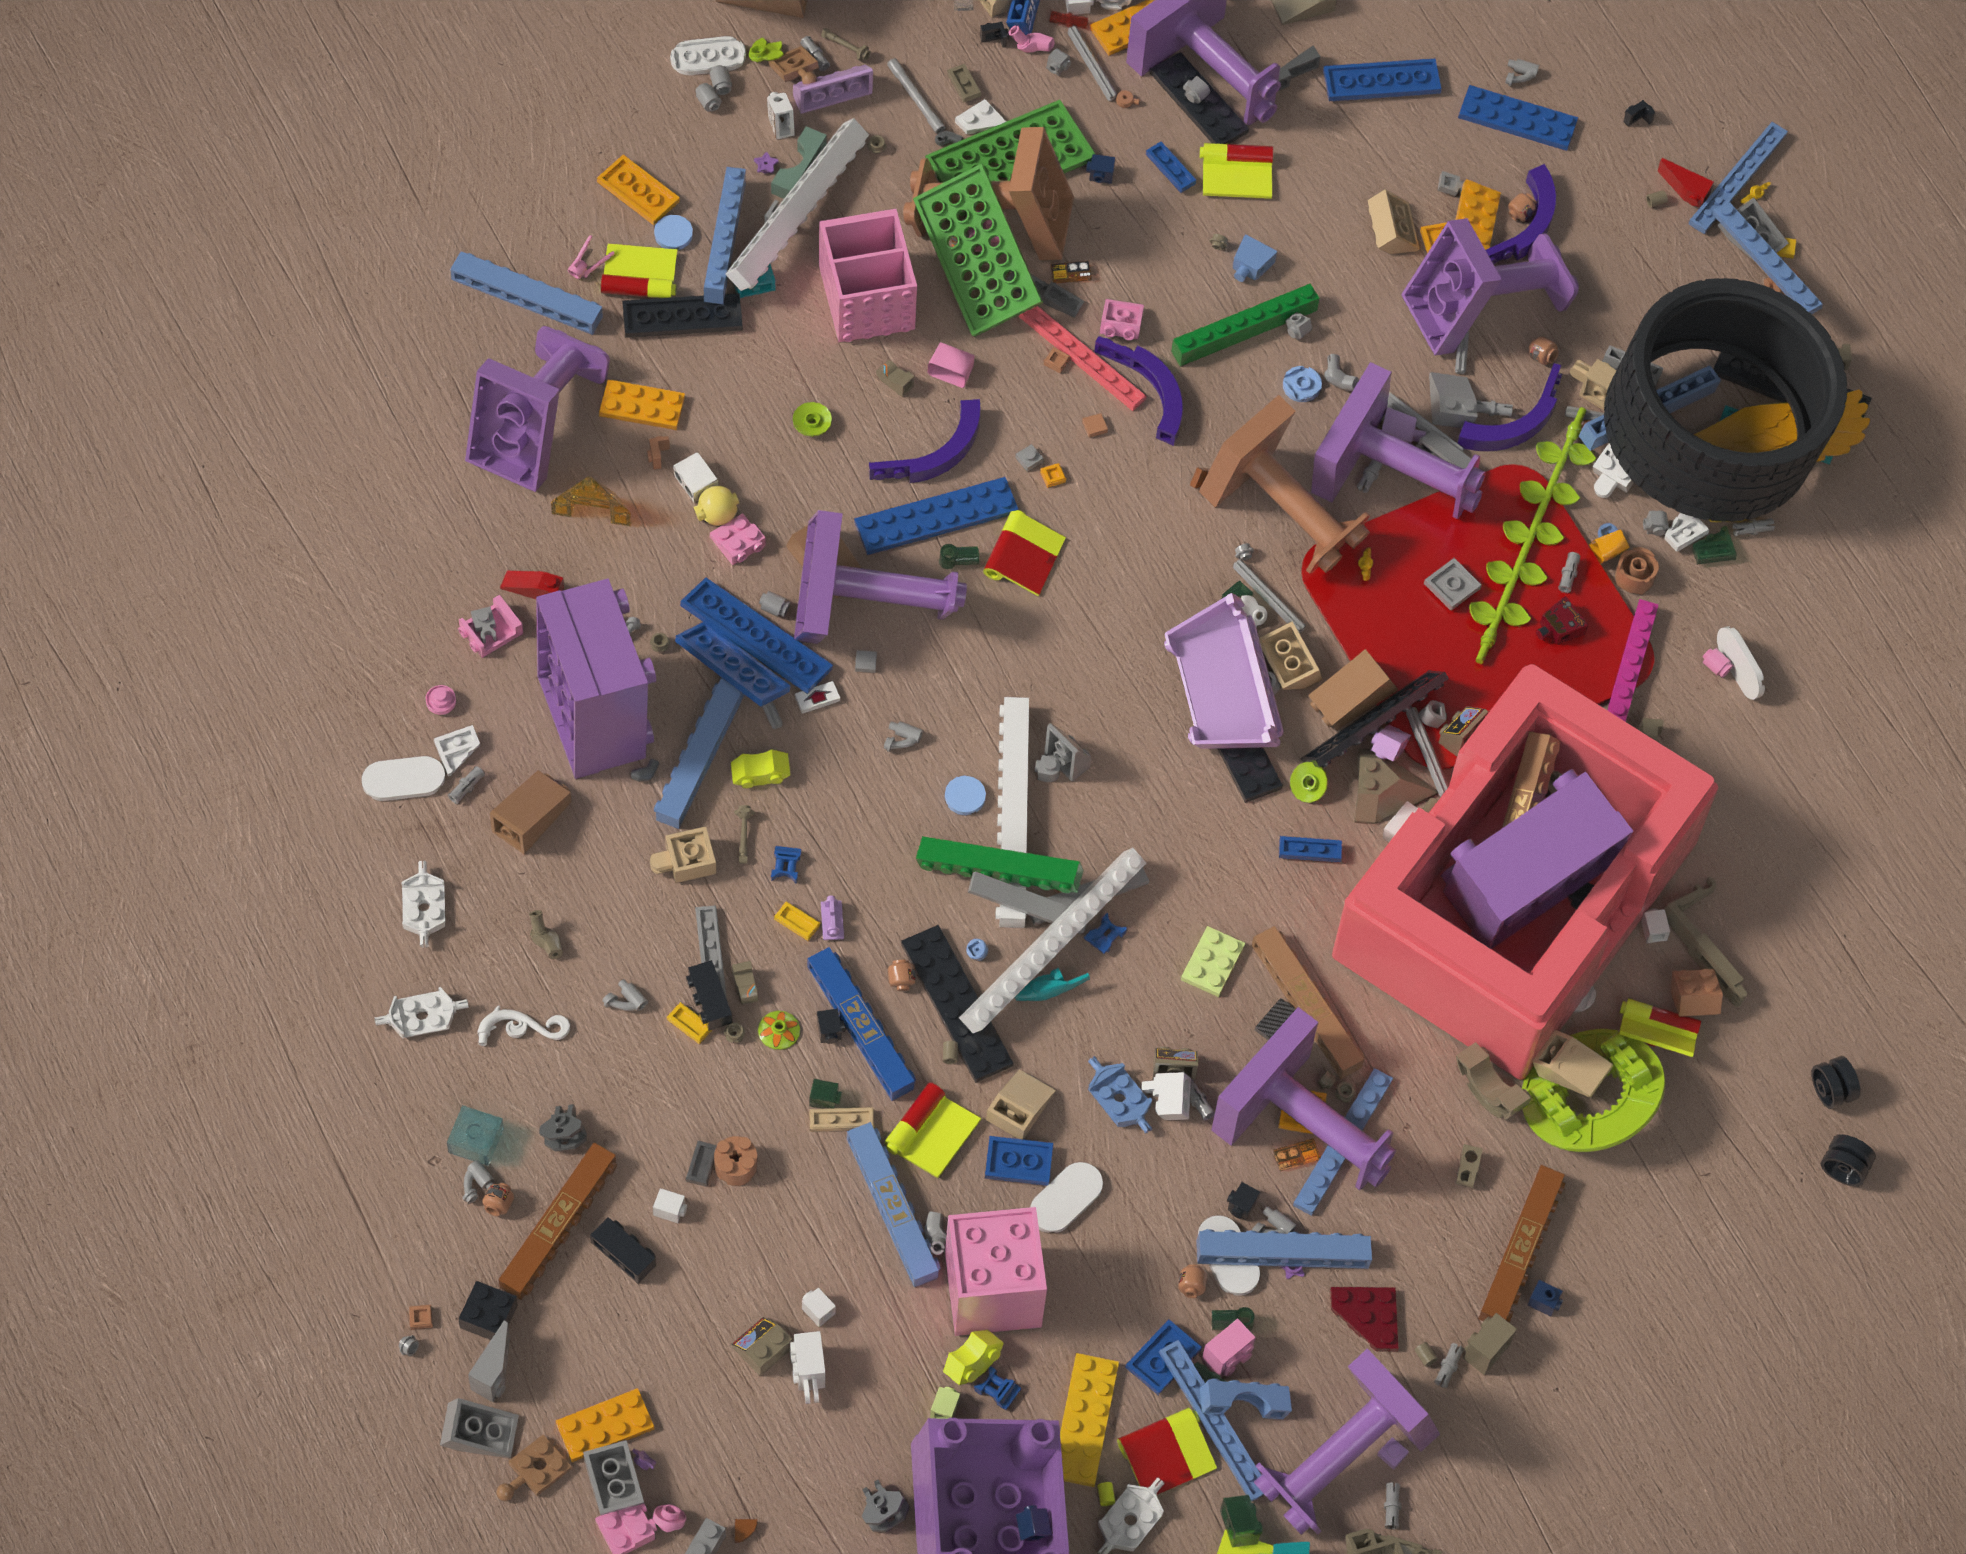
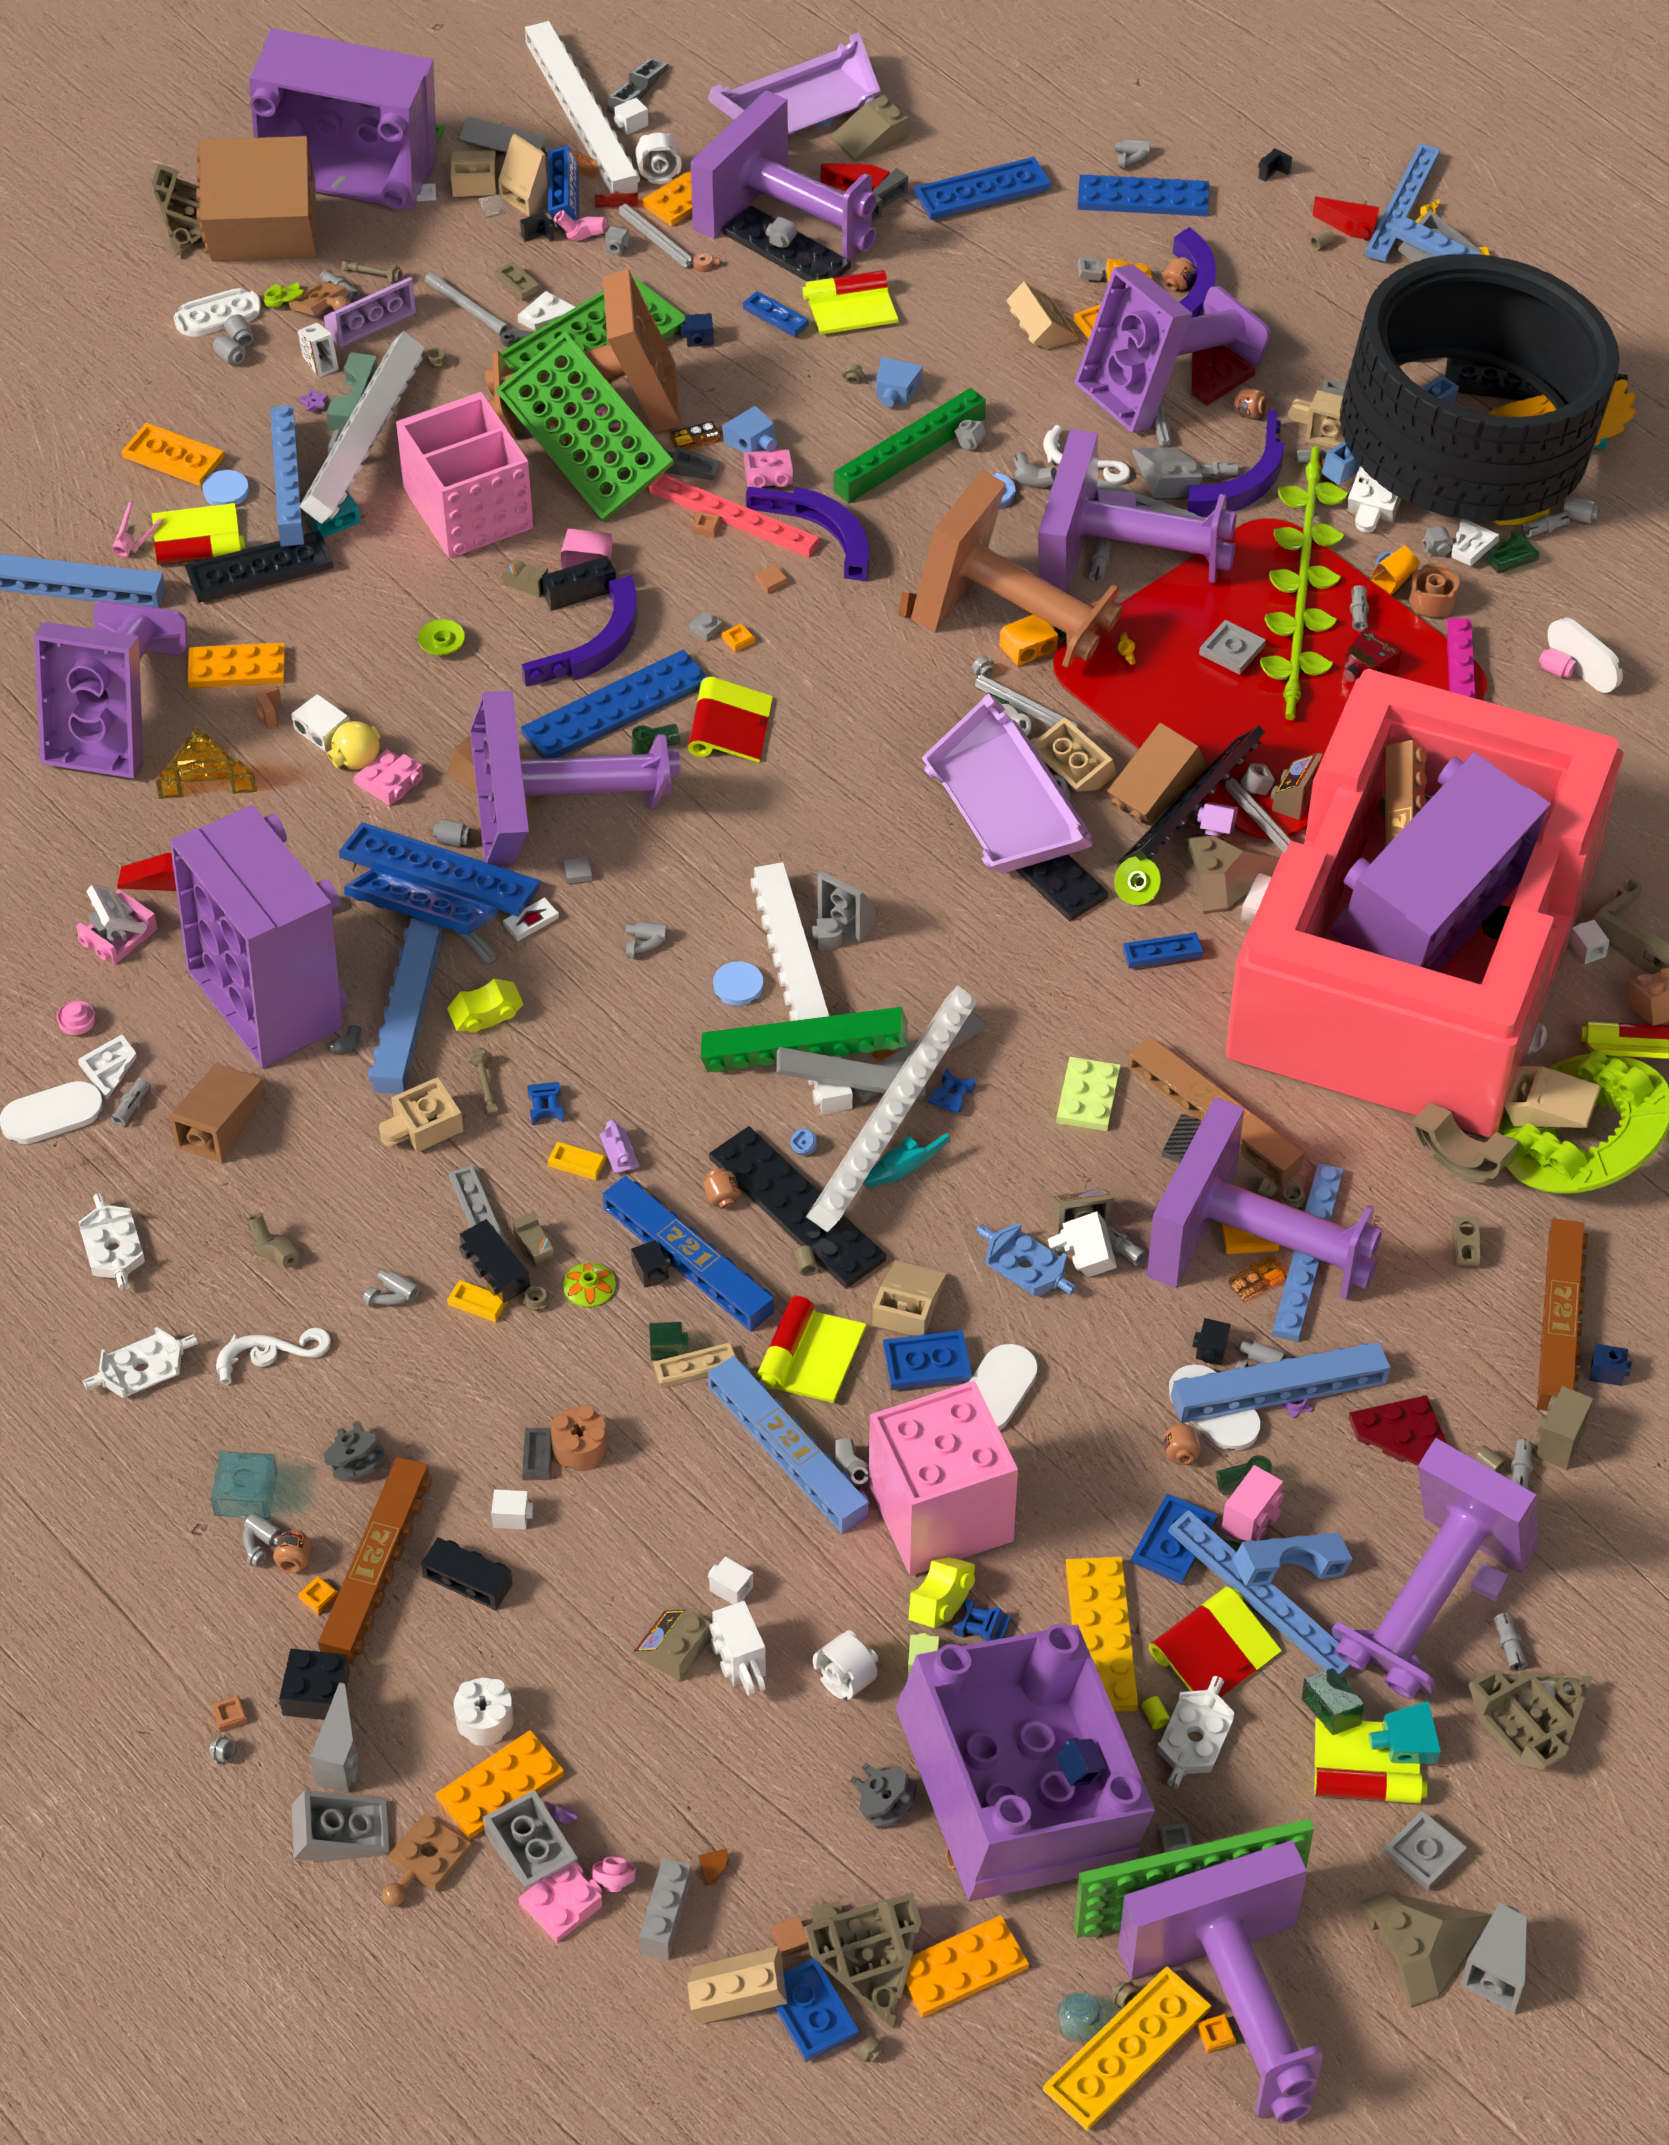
camera: 10 degrees left, 10 degrees down
(490, 615) = (113, 910): none -> white wing
(509, 1238) = (318, 1595): none -> light orange tile
(605, 1353) = (483, 1711): none -> white brick
(884, 1398) = (846, 1665): none -> white brick
(936, 394) = (578, 583): none -> black brick
(1117, 281) = (750, 432): none -> medium blue torso
(1276, 45) = (844, 175): none -> red slope
(1286, 537) = (1028, 639): none -> light orange piece
(1387, 363) = (1050, 446): none -> white plant
(1524, 314) = (1217, 373): none -> dark red plate
(1787, 520) = (1581, 510): none -> light grey brick

